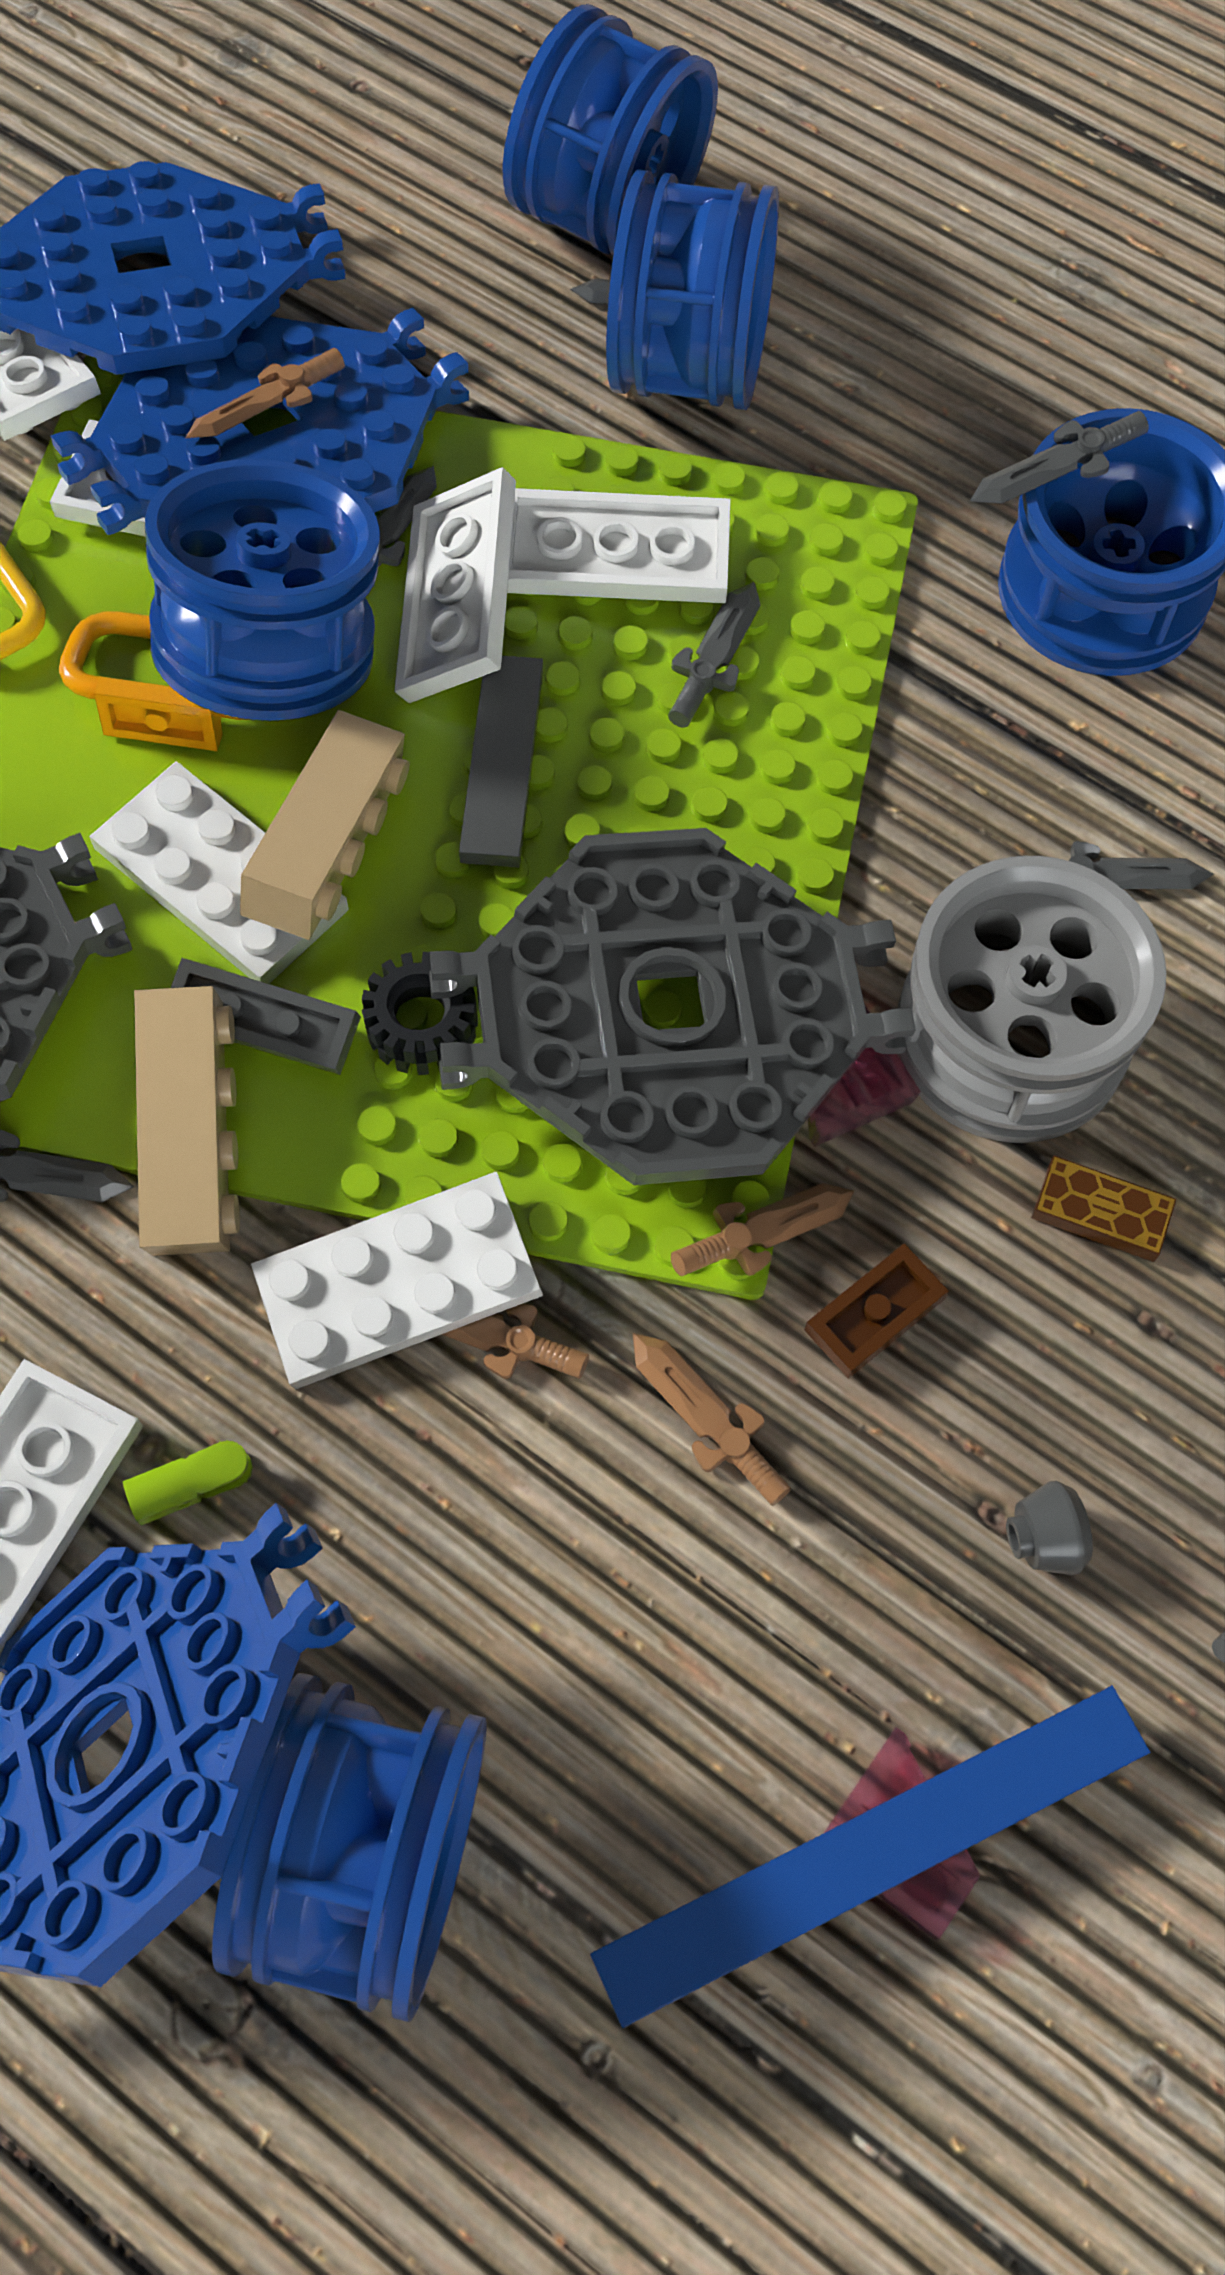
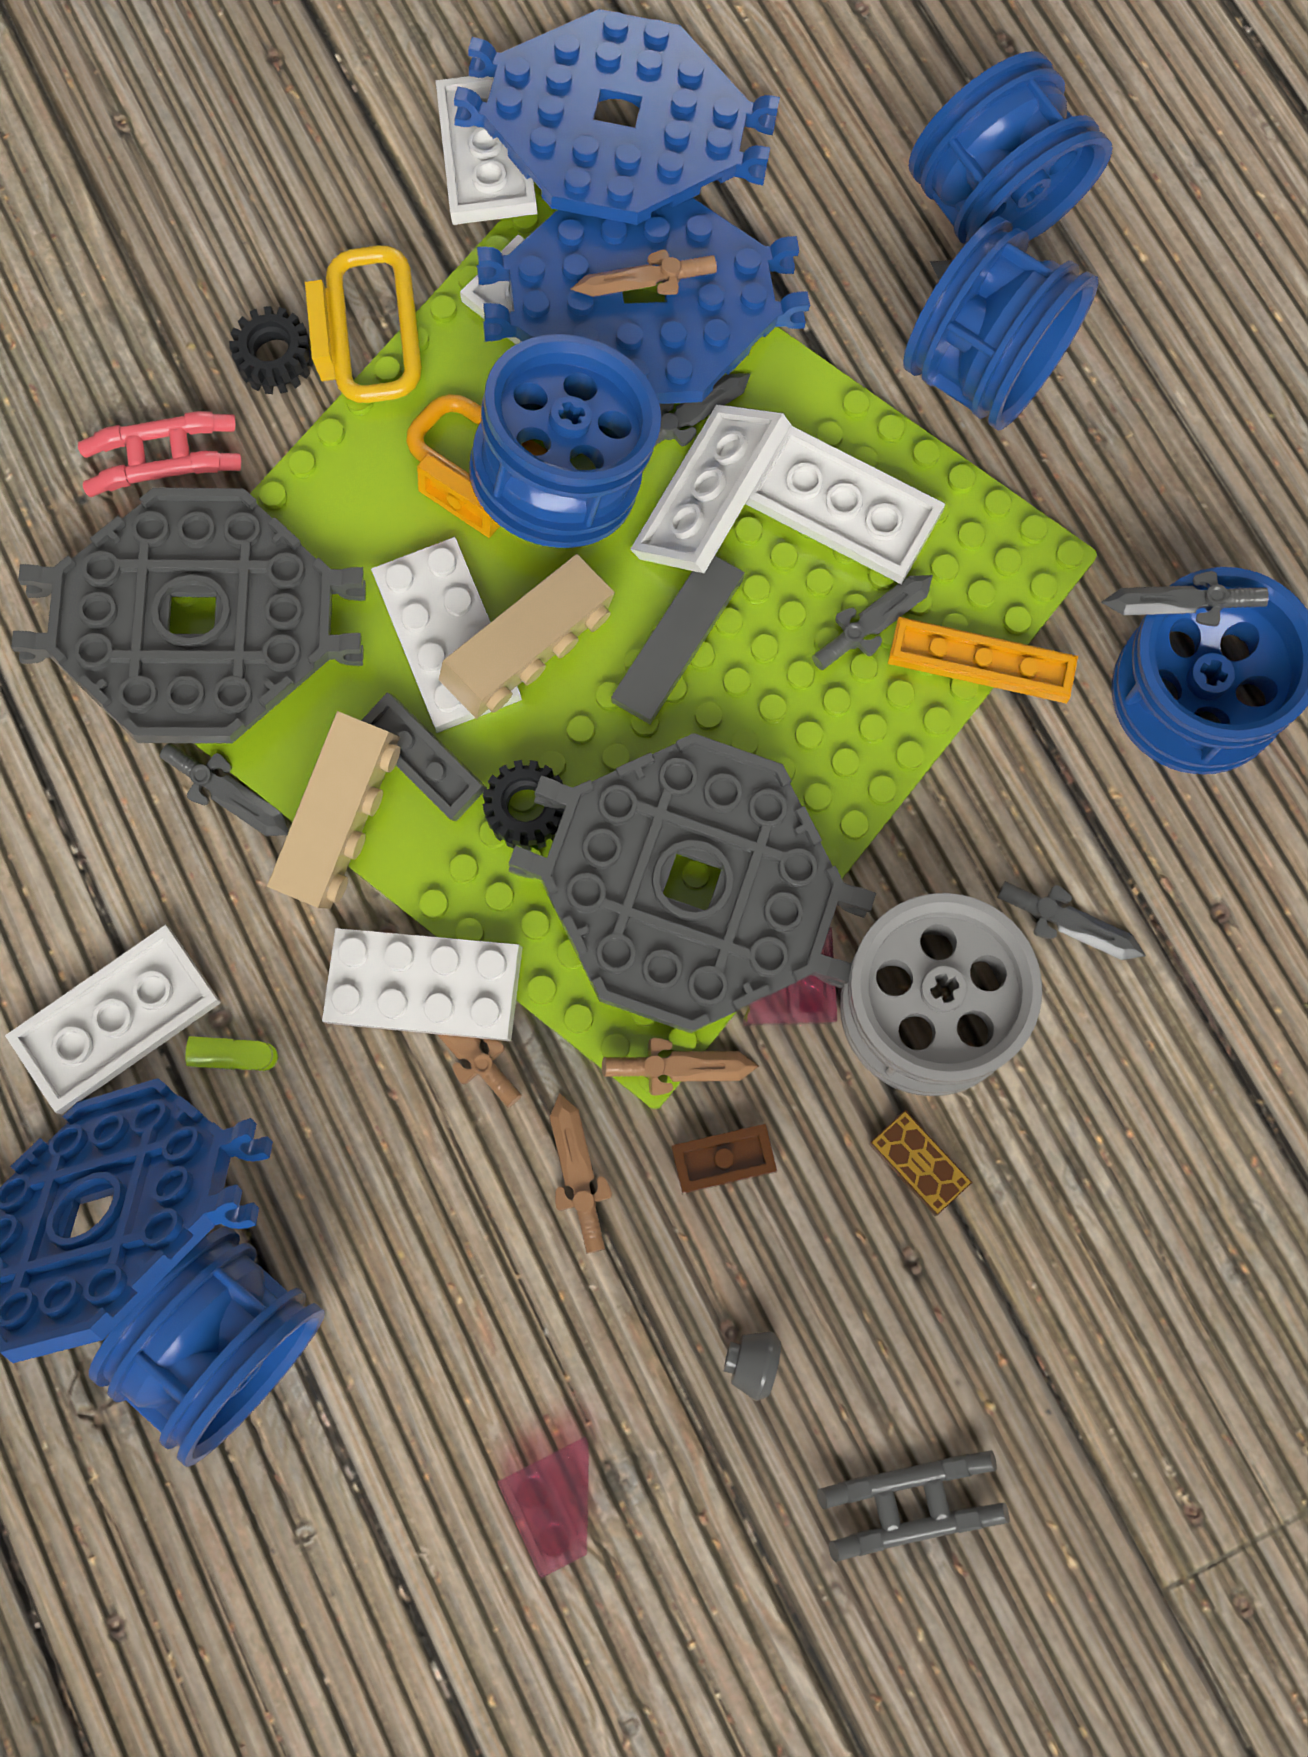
camera: 30 degrees right, 10 degrees up
(859, 642) = (983, 660): none -> light orange tile
(866, 1856) = (526, 1507): blue tile -> none

